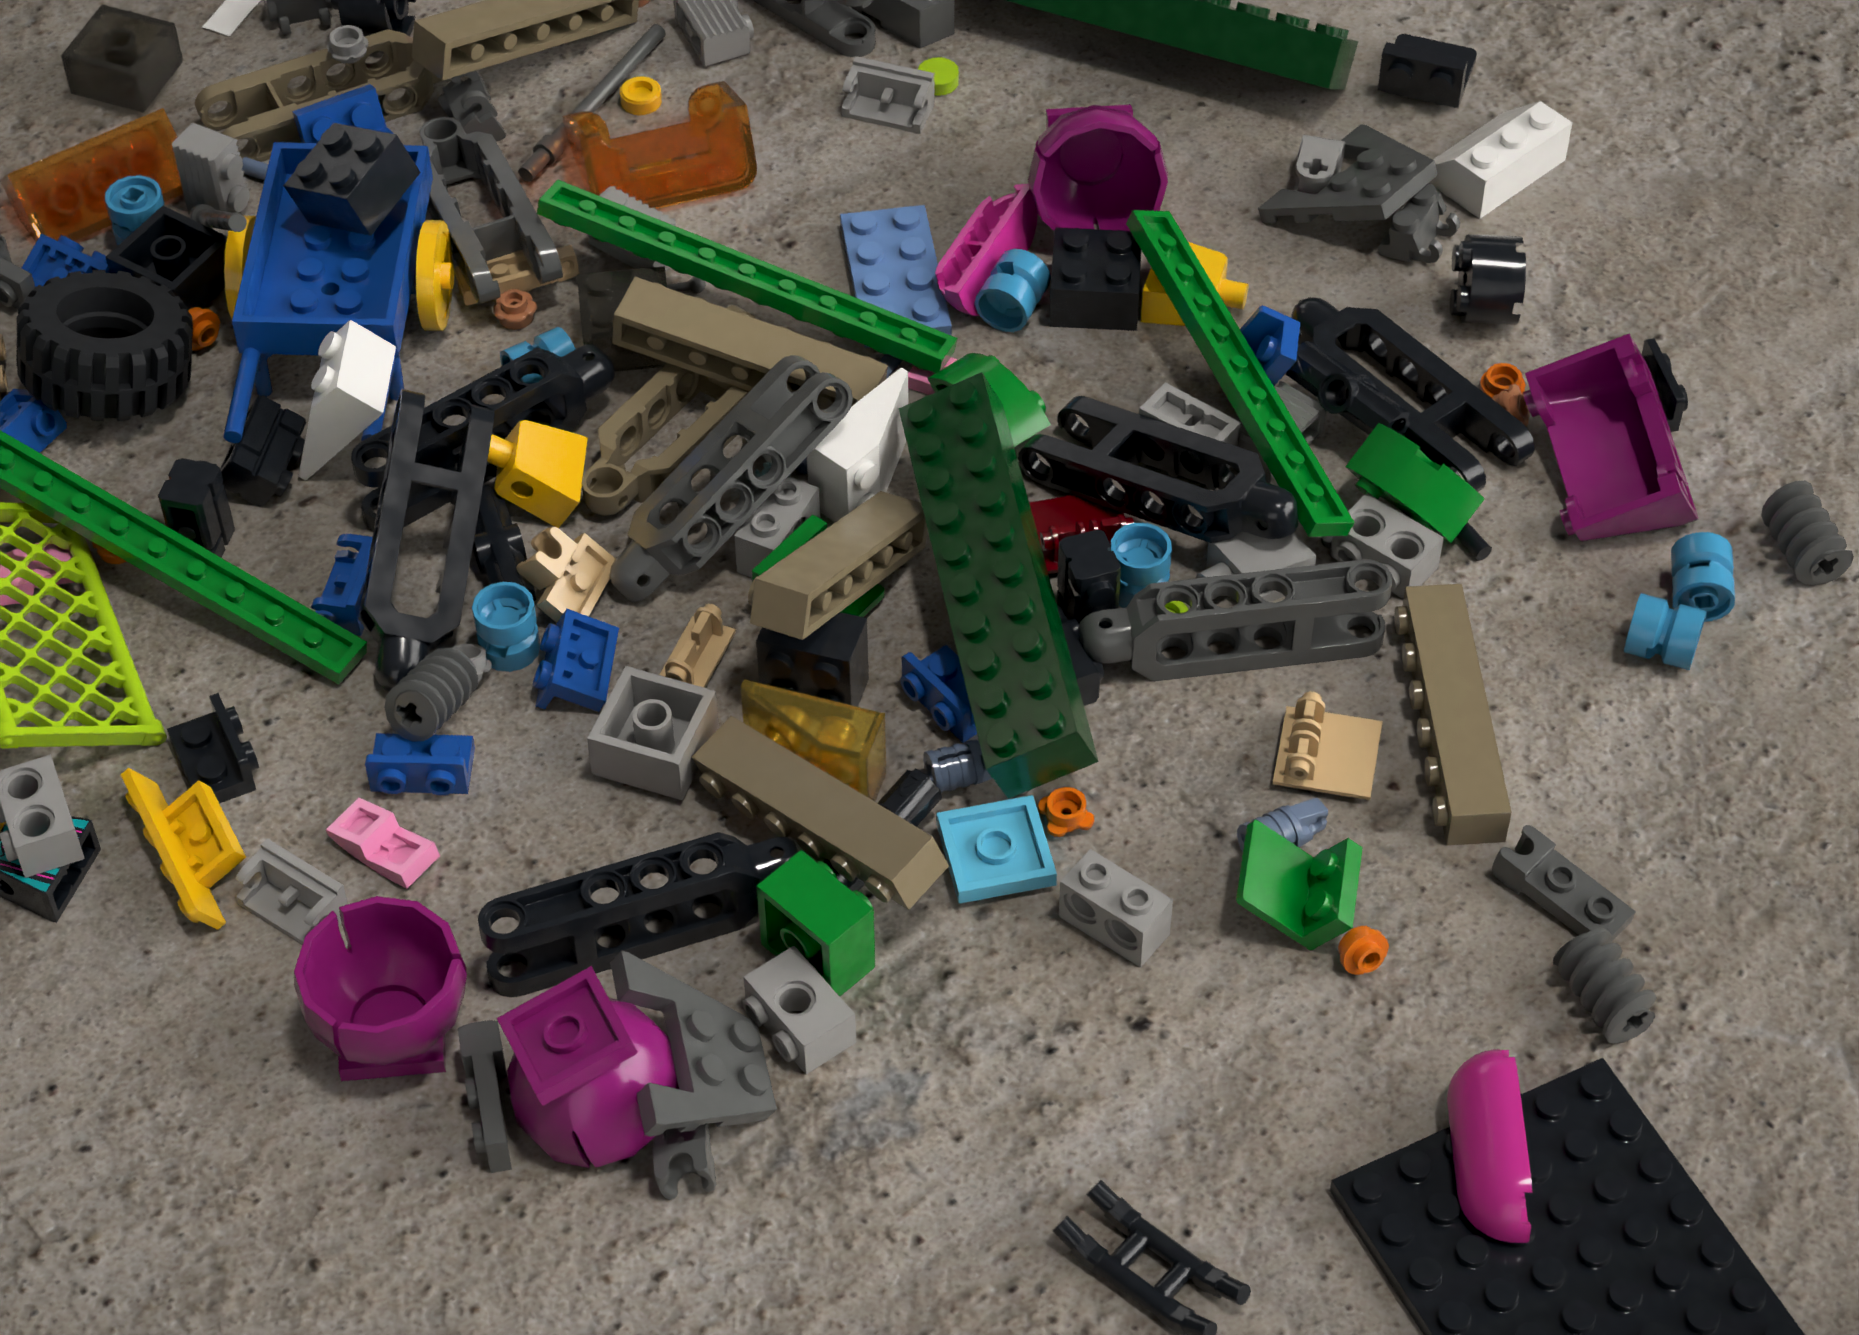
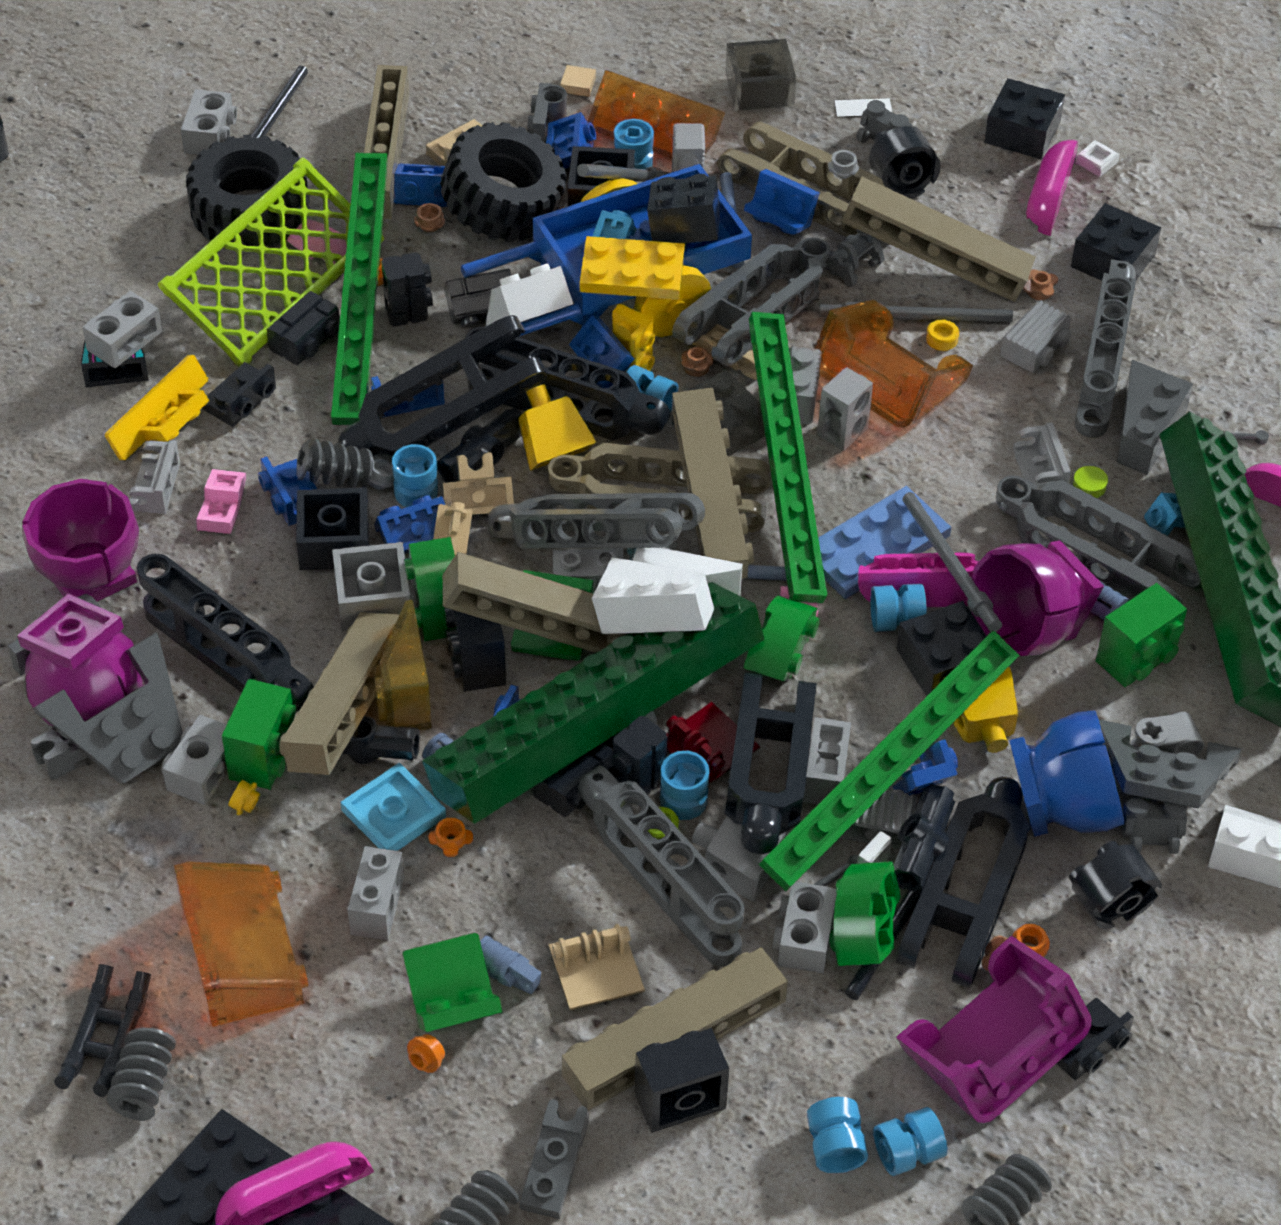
camera: 60 degrees right, 0 degrees up
(73, 452) = (429, 217): none -> nougat plate
(162, 644) = (304, 328): none -> black brick
(317, 263) = (614, 225): none -> dark azure bracket
(397, 264) = (632, 267): none -> yellow plate
(449, 368) = (601, 346): none -> blue bracket
(460, 337) = (635, 333): none -> yellow bracket
(531, 736) = (328, 522): none -> black brick
(639, 641) = (455, 523): none -> tan hinge
(702, 654) = (426, 566): none -> green brick
(709, 200) = (845, 408): none -> light grey brick
(882, 990) = (244, 797): none -> yellow plate
(913, 453) = (651, 598): none -> white wedge
(1032, 36) = (1165, 514): none -> dark azure bracket
(1073, 71) = (1126, 577): none -> dark grey piece
(1079, 210) = (977, 600): none -> dark grey bar
(1102, 1062) = (239, 939): none -> clear orange windscreen
(1190, 119) = (1141, 635): none -> green brick
(1241, 1244) = (140, 1073): none -> dark grey piece
(1329, 452) = (877, 850): none -> white tile
(1347, 257) = (1069, 777): none -> blue plate
(1538, 724) = (681, 1079): none -> black brick

